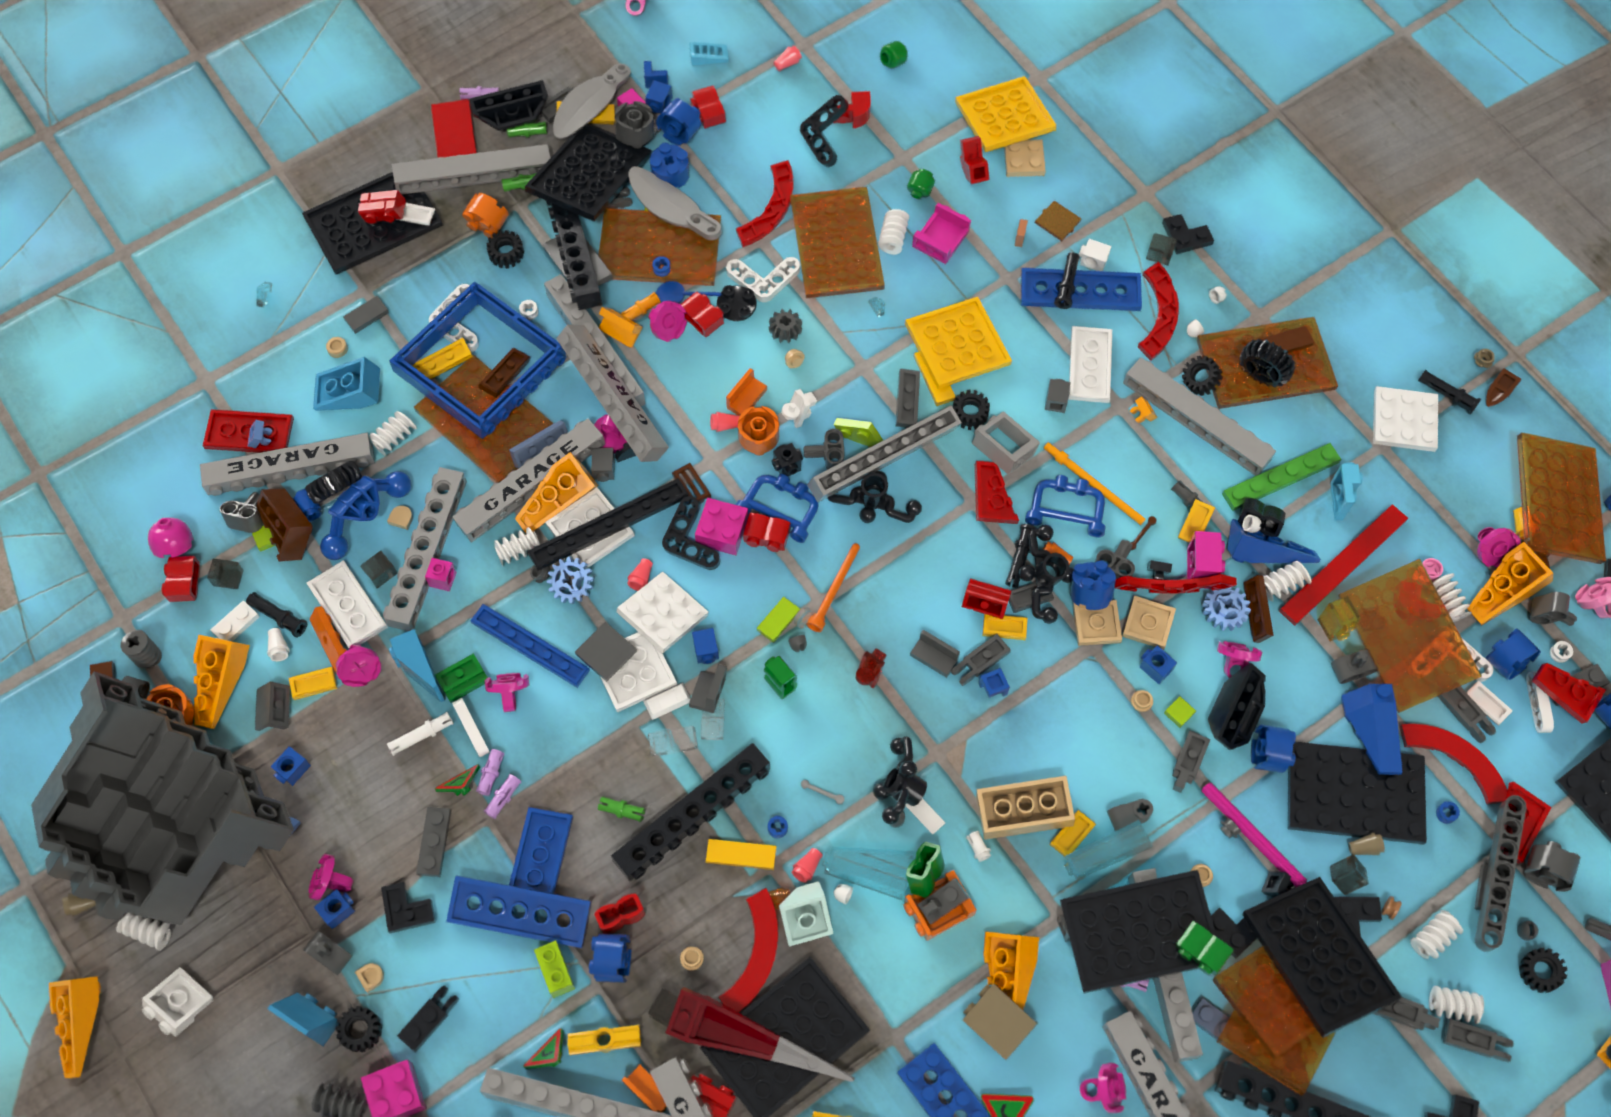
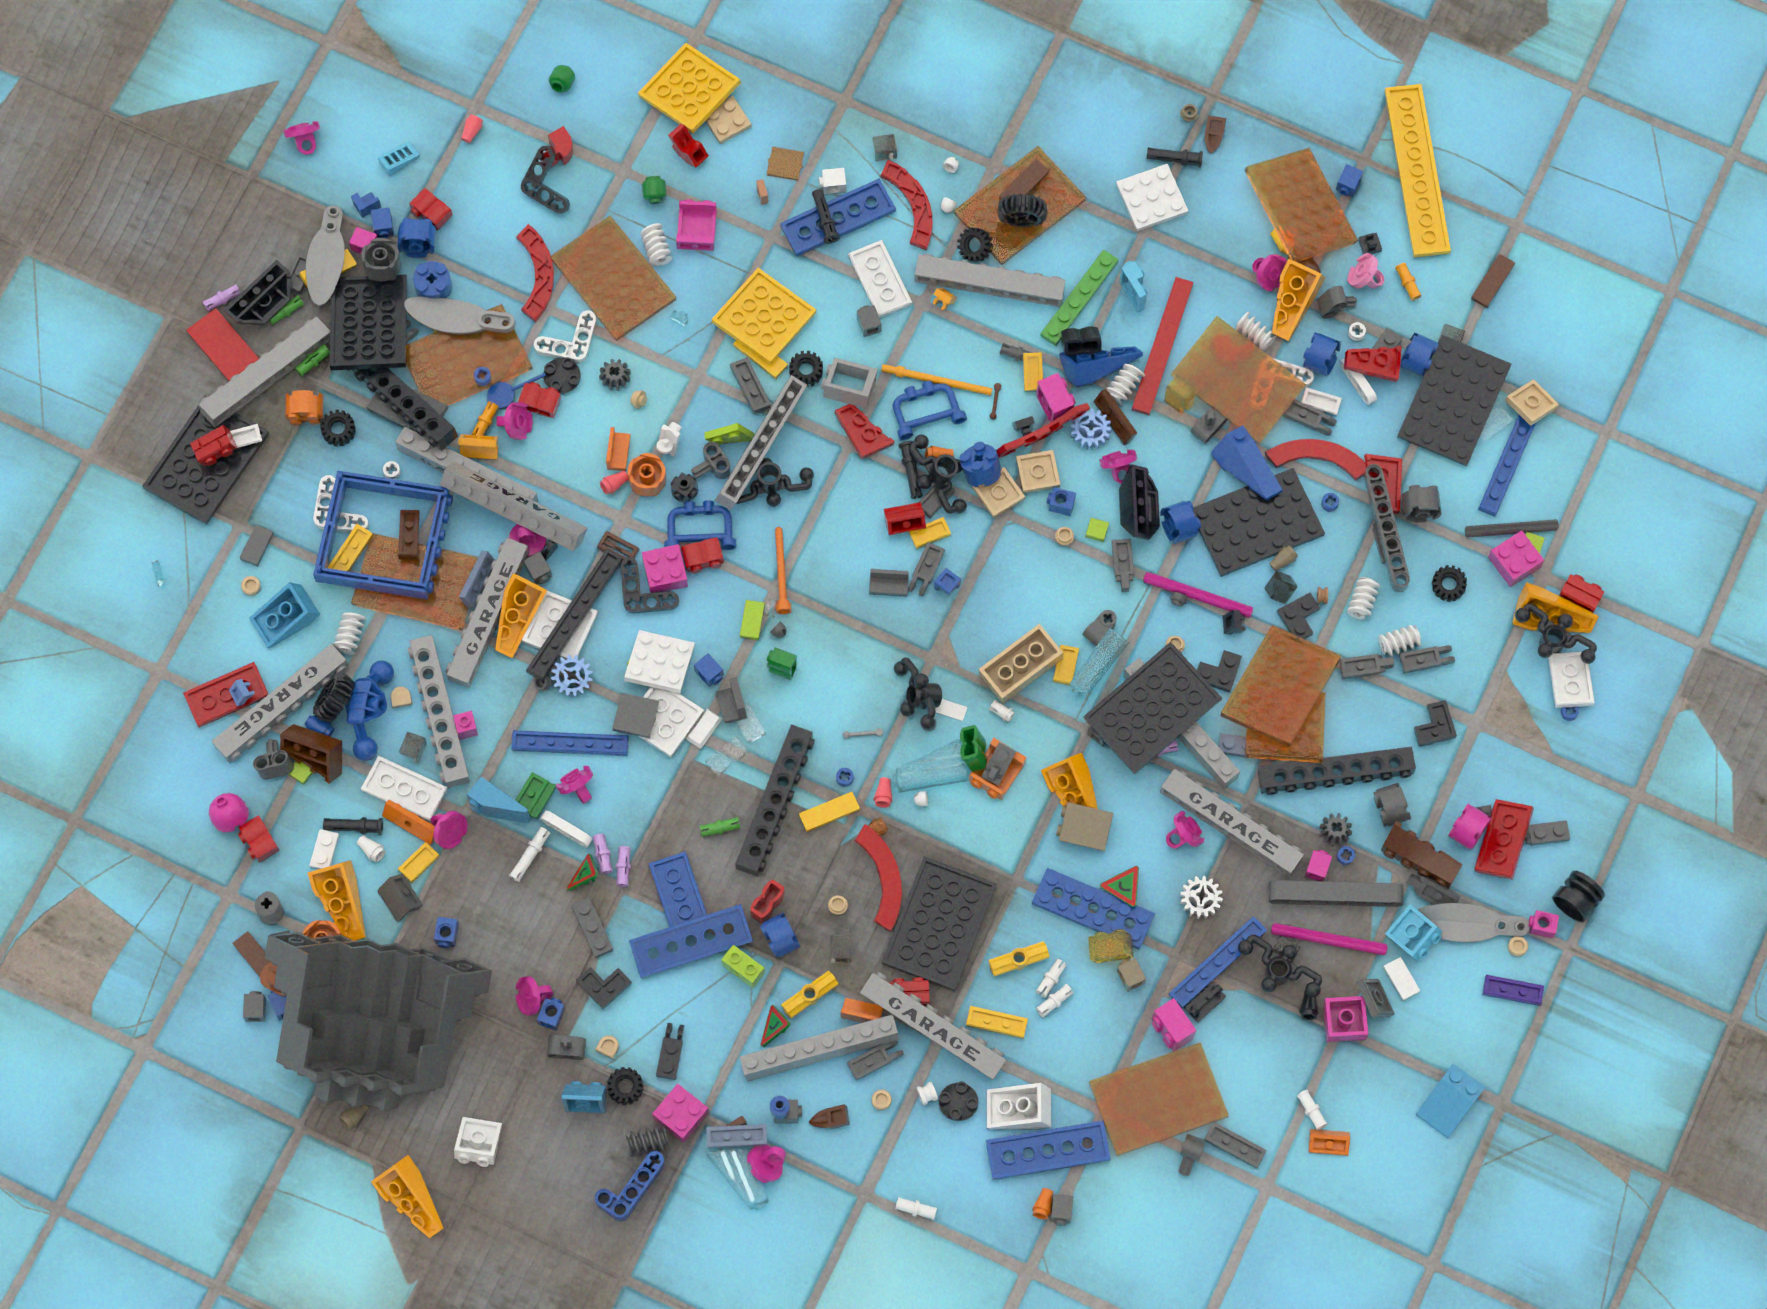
camera: 30 degrees left, 5 degrees up
(59, 737) = (254, 1007): none -> dark grey brick
(145, 930) = (418, 1104): white piece -> none
(225, 573) = (291, 816): clear smoke panel -> none
(516, 545) = (511, 670): white piece -> none
(640, 575) = (623, 642): coral cone -> none
(712, 1024) = (883, 939): dark red plate -> none
(805, 914) = (904, 828): light aqua slope -> none
(870, 668) = (847, 619): clear red hips -> none
(1117, 560) = (988, 433): dark grey beam -> none
(1187, 238) = (899, 126): black plate -> none
(1204, 949) = (1203, 695): green brick -> none
(1251, 524) = (1076, 351): white hinge -> none
(1321, 956) = (1288, 656): black plate -> none
(1433, 568) = (1230, 314): bright pink wheel -> none
(1524, 930) = (1423, 562): dark grey hinge -> none

